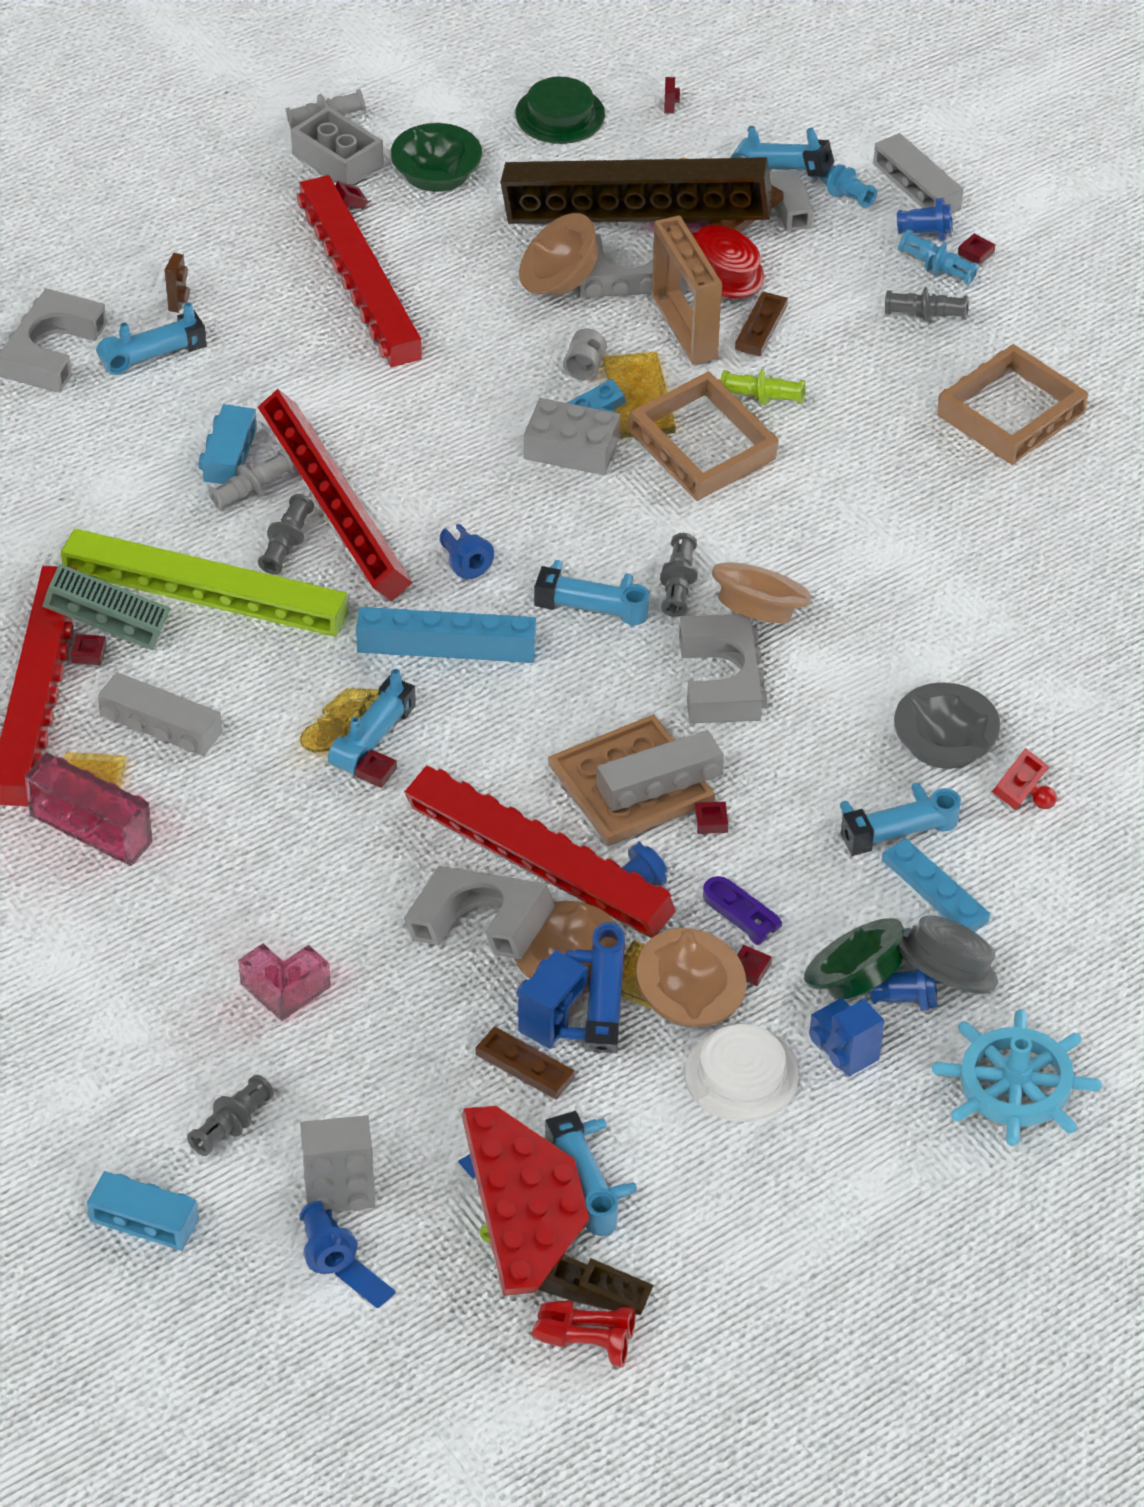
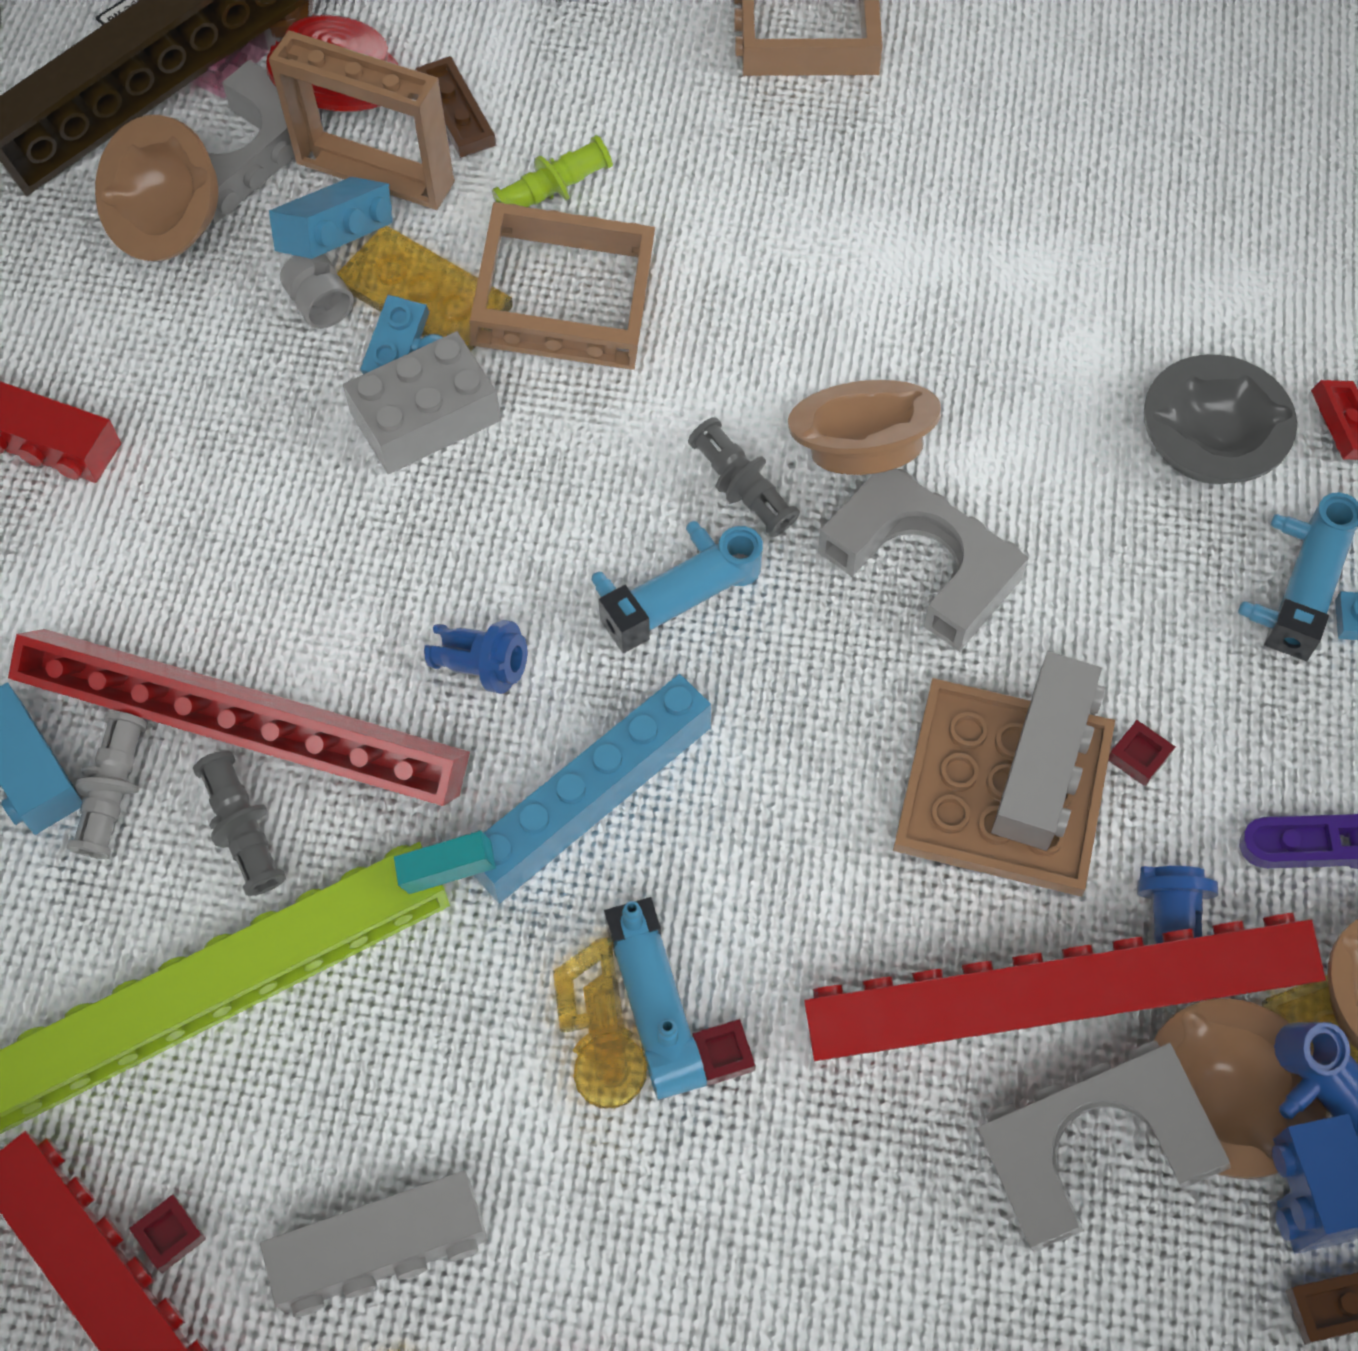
camera: 45 degrees left, 15 degrees up
(106, 606) = (133, 1156): sand green brick -> none
(343, 601) = (444, 862): none -> teal piece
(625, 324) = (330, 217): none -> dark azure brick

